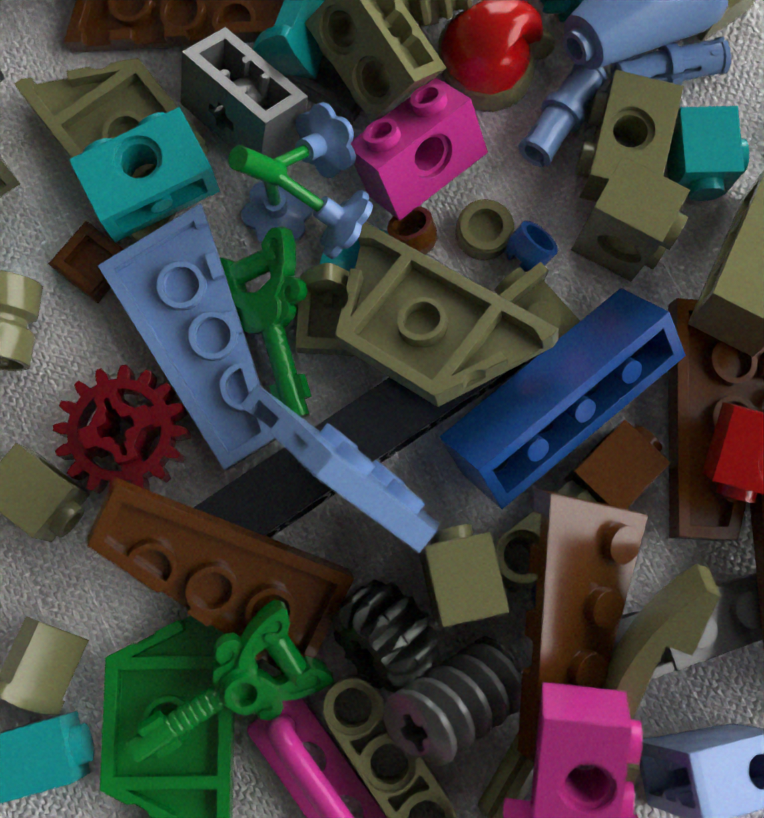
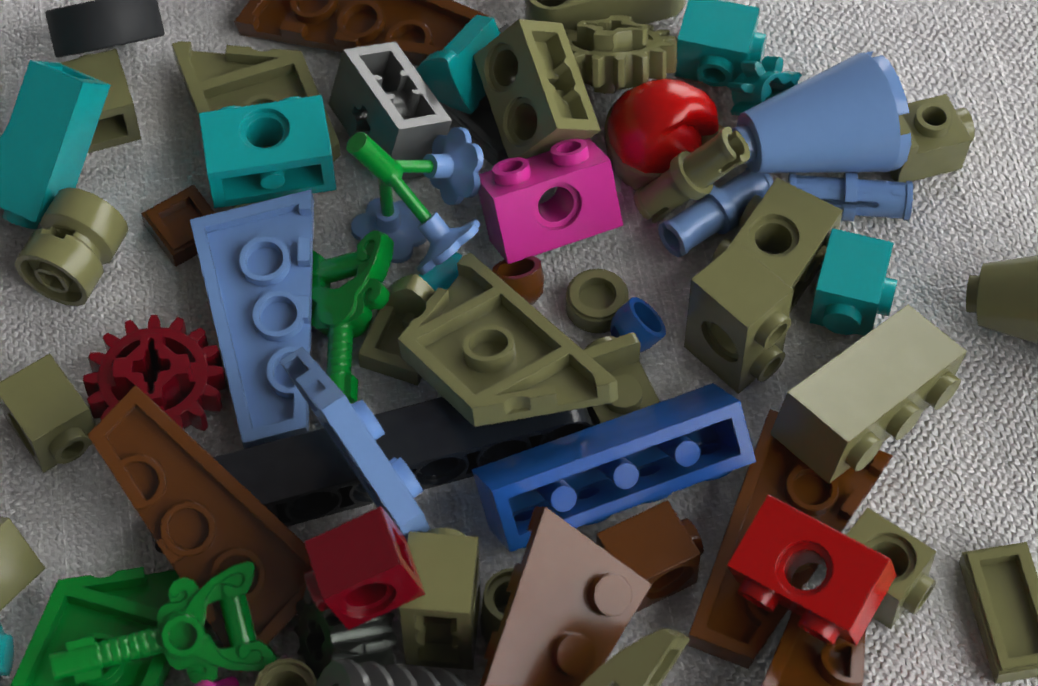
camera: 20 degrees right, 20 degrees down
(400, 609) = (362, 569): none -> dark red brick
(540, 87) = (692, 175): none -> olive pin

